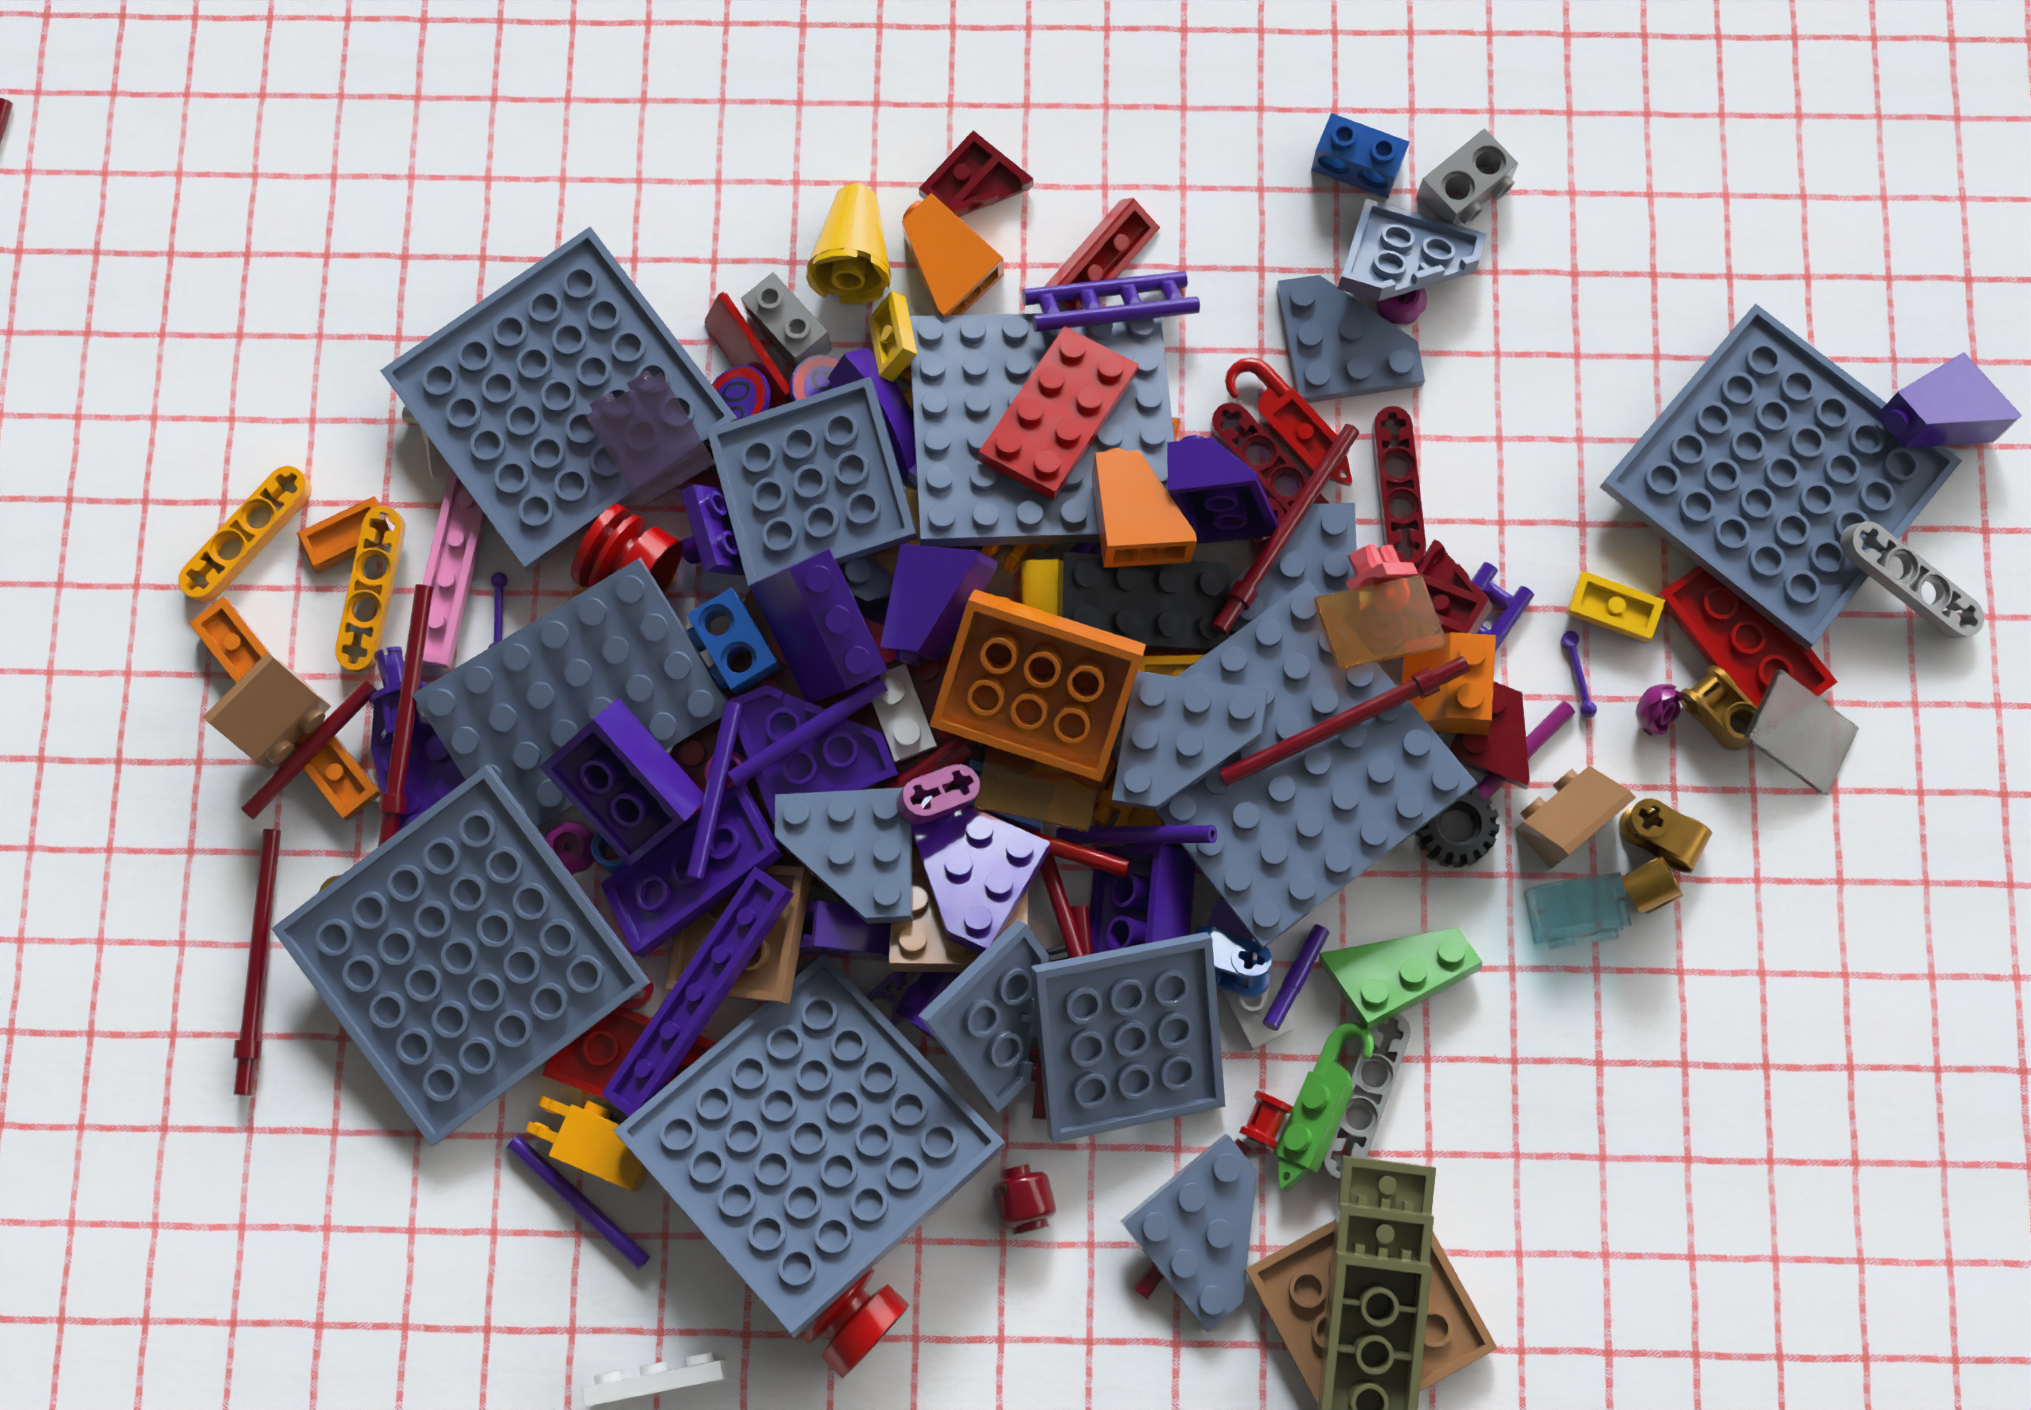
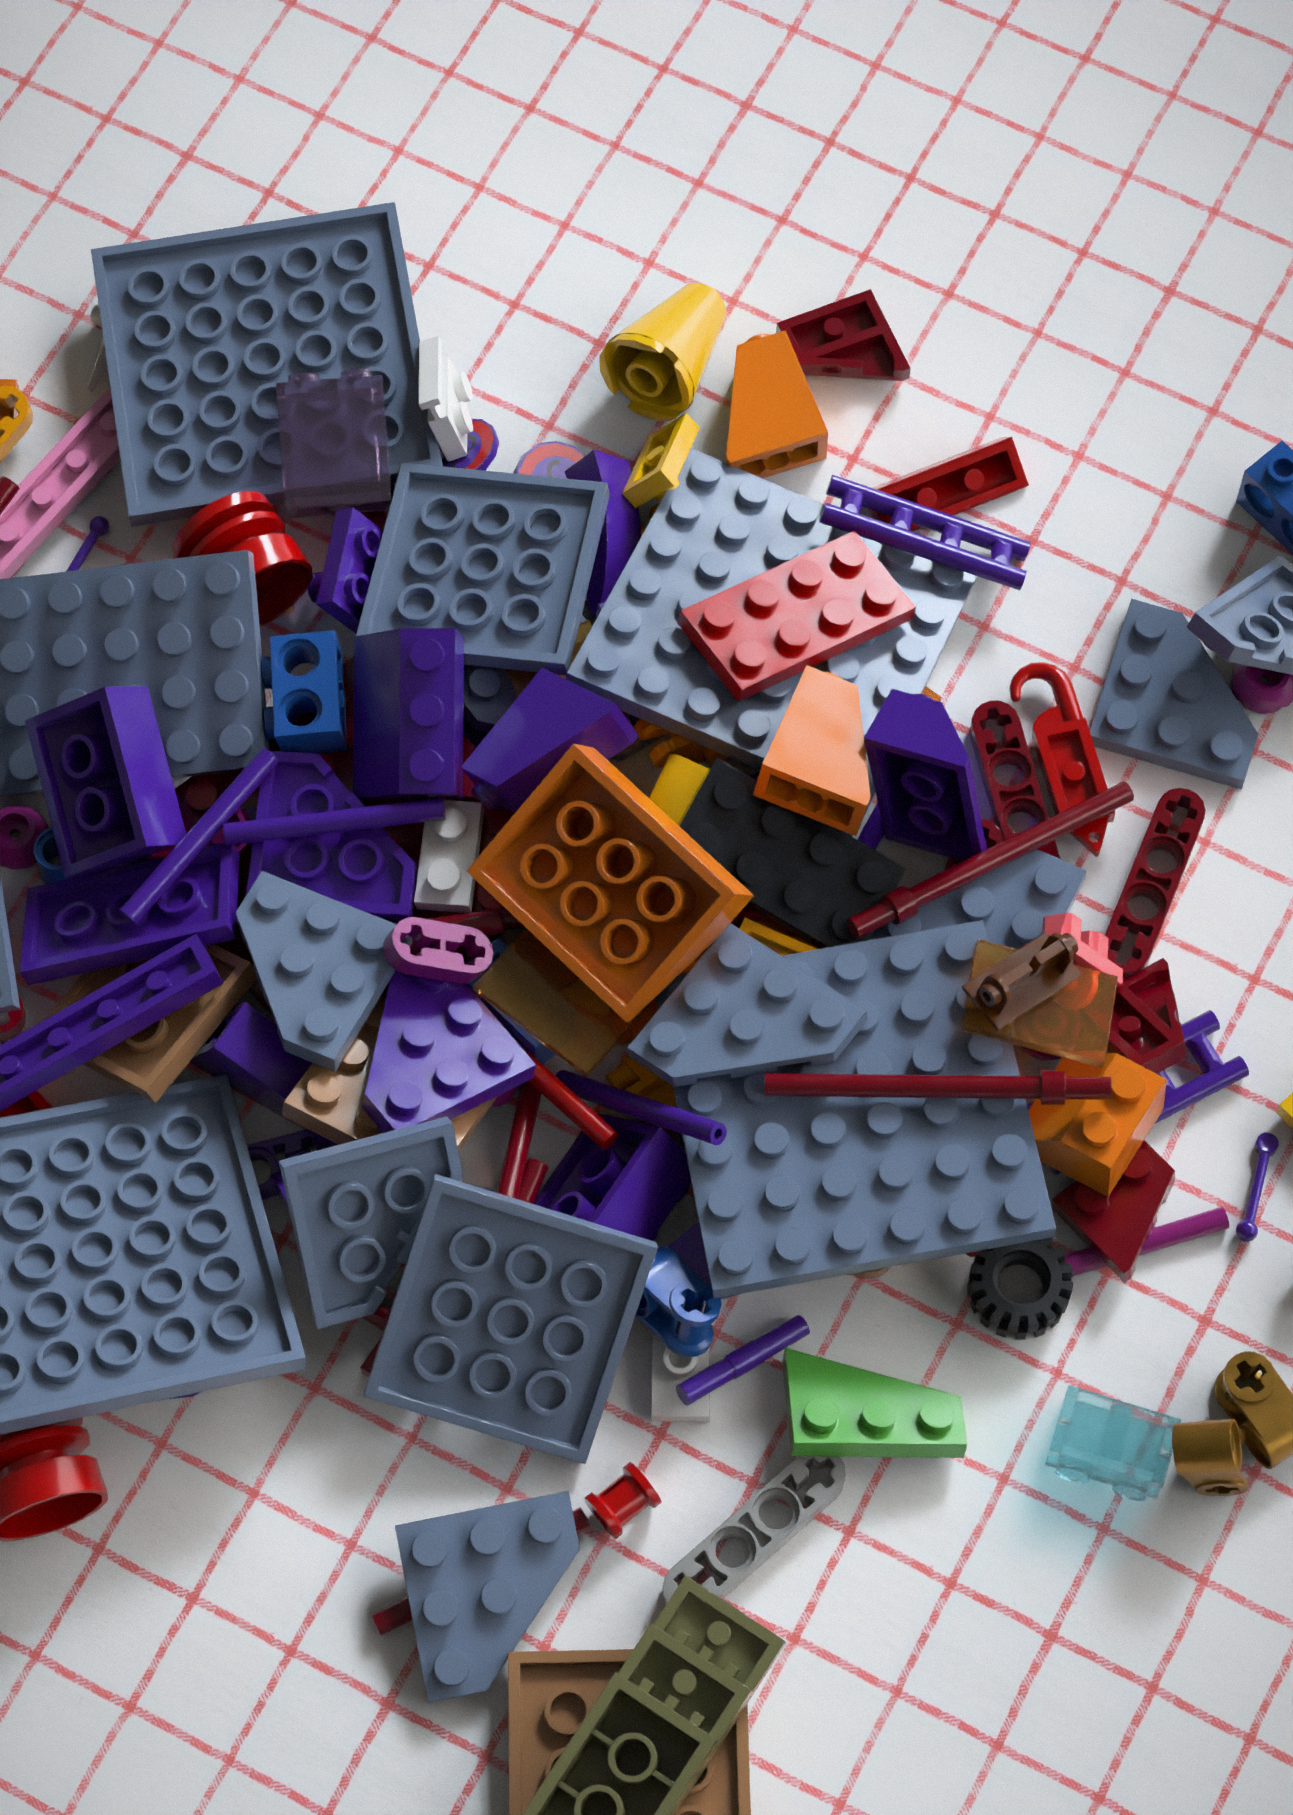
camera: 25 degrees right, 10 degrees down
(707, 362) = (445, 397): none -> white plate
(743, 347) = (493, 399): red slope -> none
(785, 321) = (553, 393): light grey brick -> none
(1023, 1199) = (300, 1451): dark red head -> none
(1318, 1108) = (689, 1518): bright green plate -> none
(1365, 612) = (1024, 978): none -> reddish brown hinge
(1572, 814) = (1160, 1334): medium nougat slope -> none

